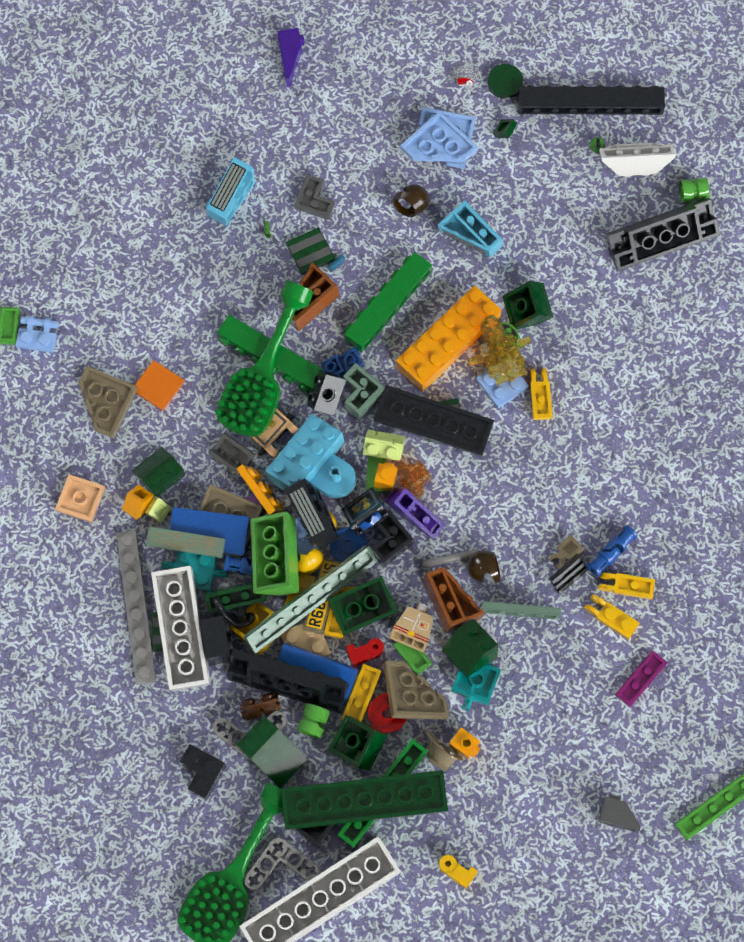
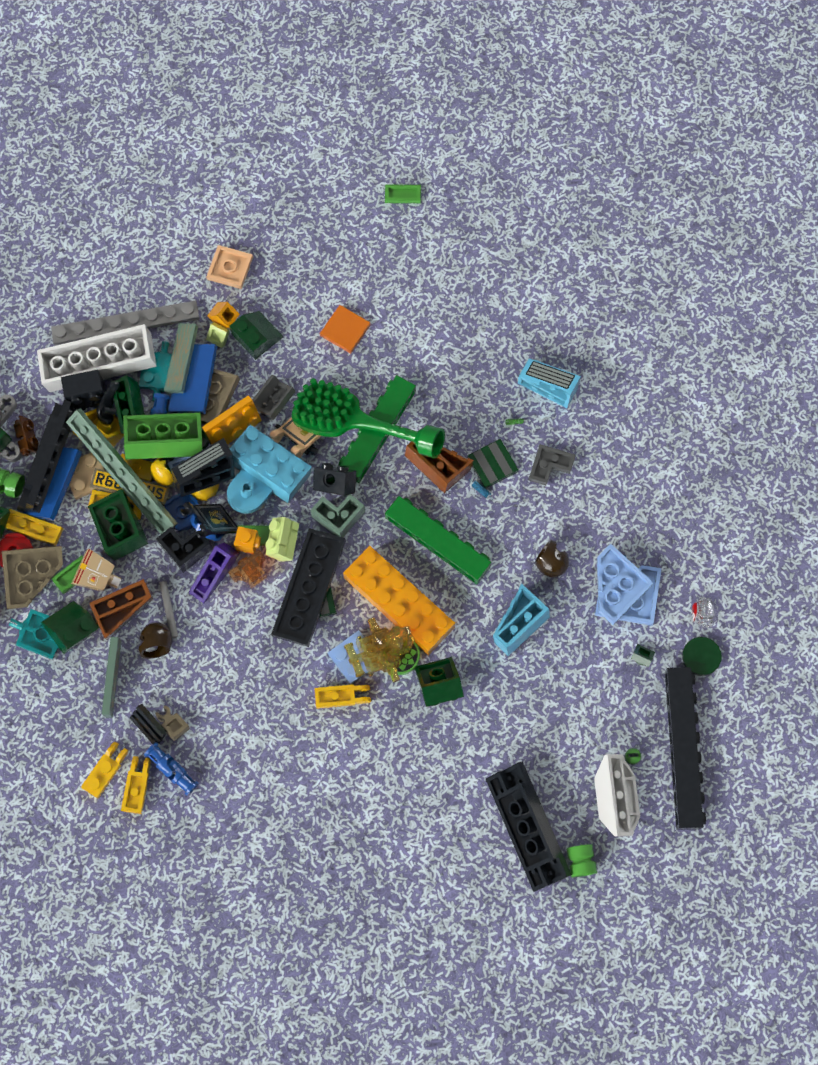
camera: 90 degrees right, 0 degrees up
(35, 339) = (389, 217): light blue plate -> none
(106, 399) = (327, 282): dark tan plate -> none
(291, 49) = (715, 433): dark purple slope -> none
(343, 362) = (371, 498): blue slope -> none
(365, 653) = (72, 528): red leg -> none
(641, 678) = (40, 800): magenta tile -> none

